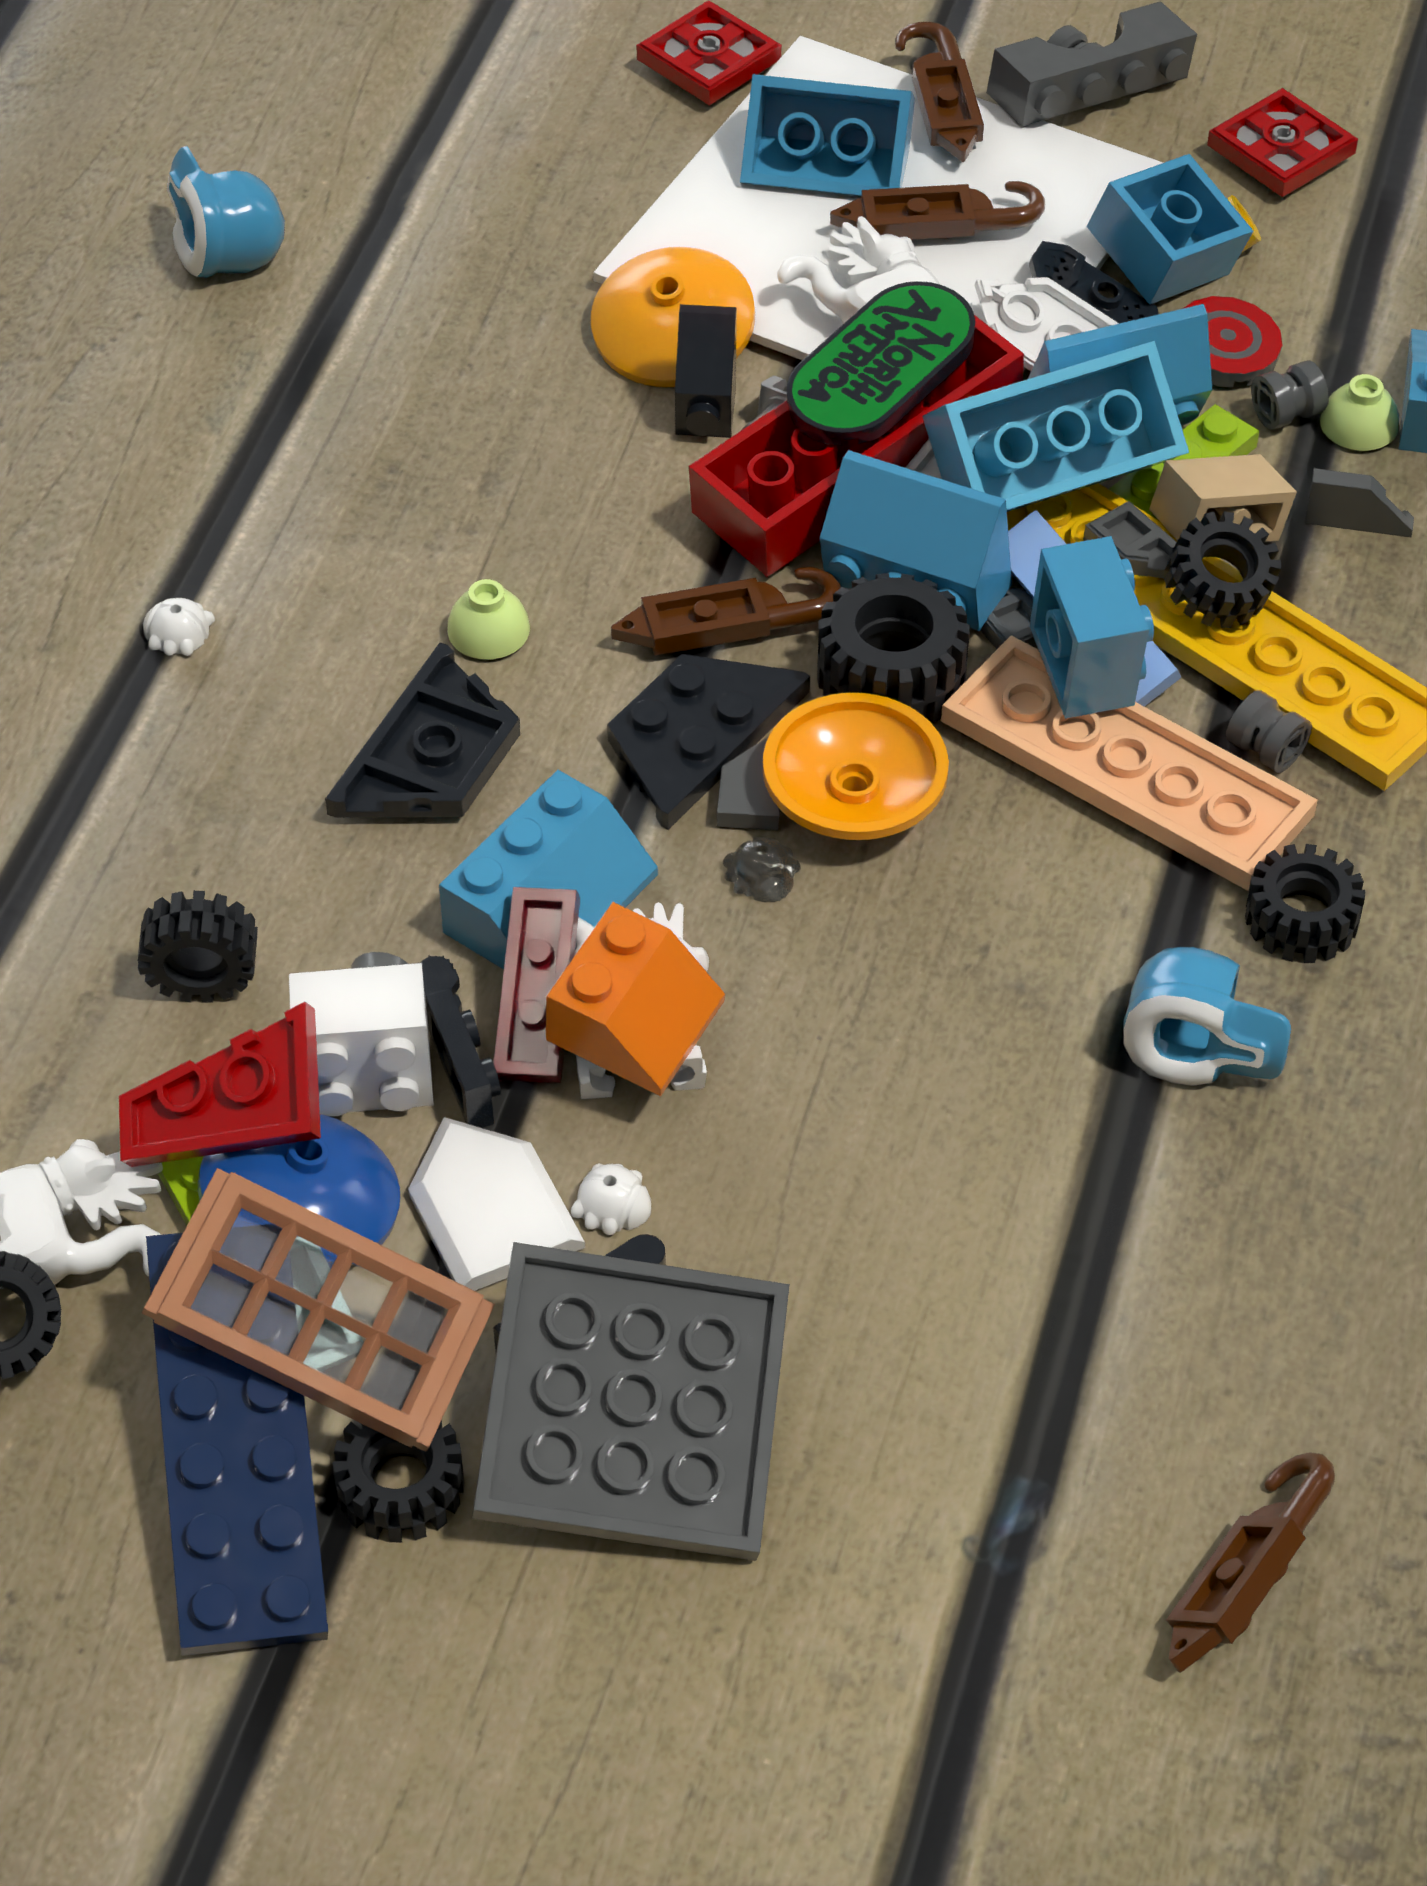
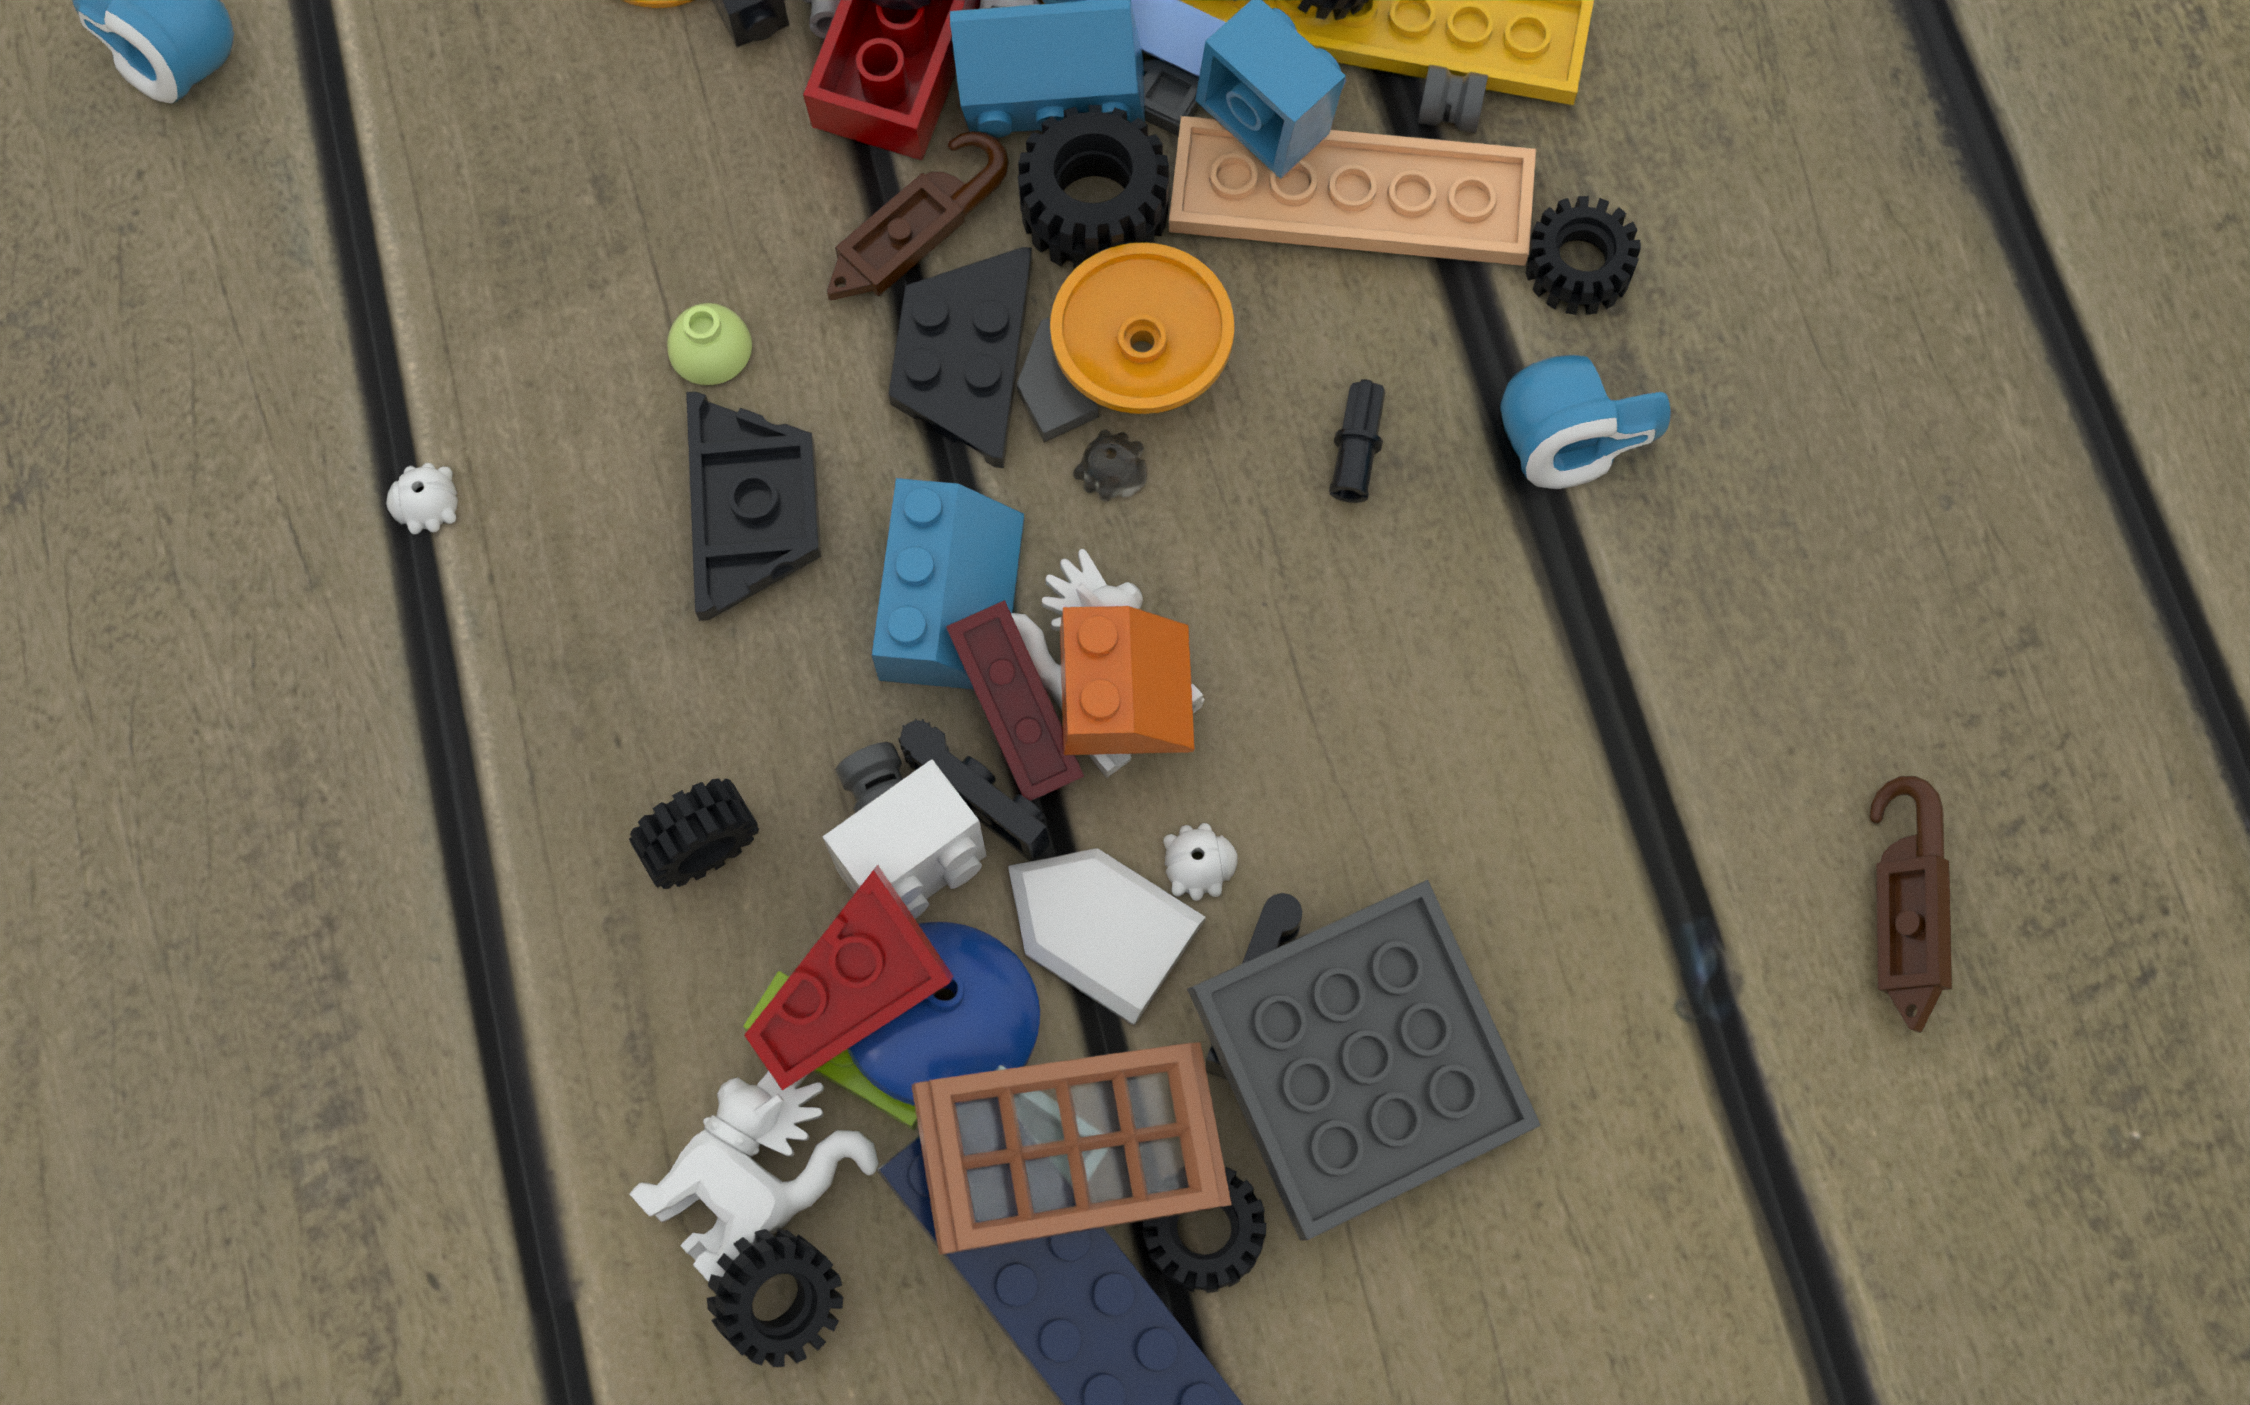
camera: 30 degrees left, 20 degrees up
(990, 950) = (1358, 442): none -> black axle

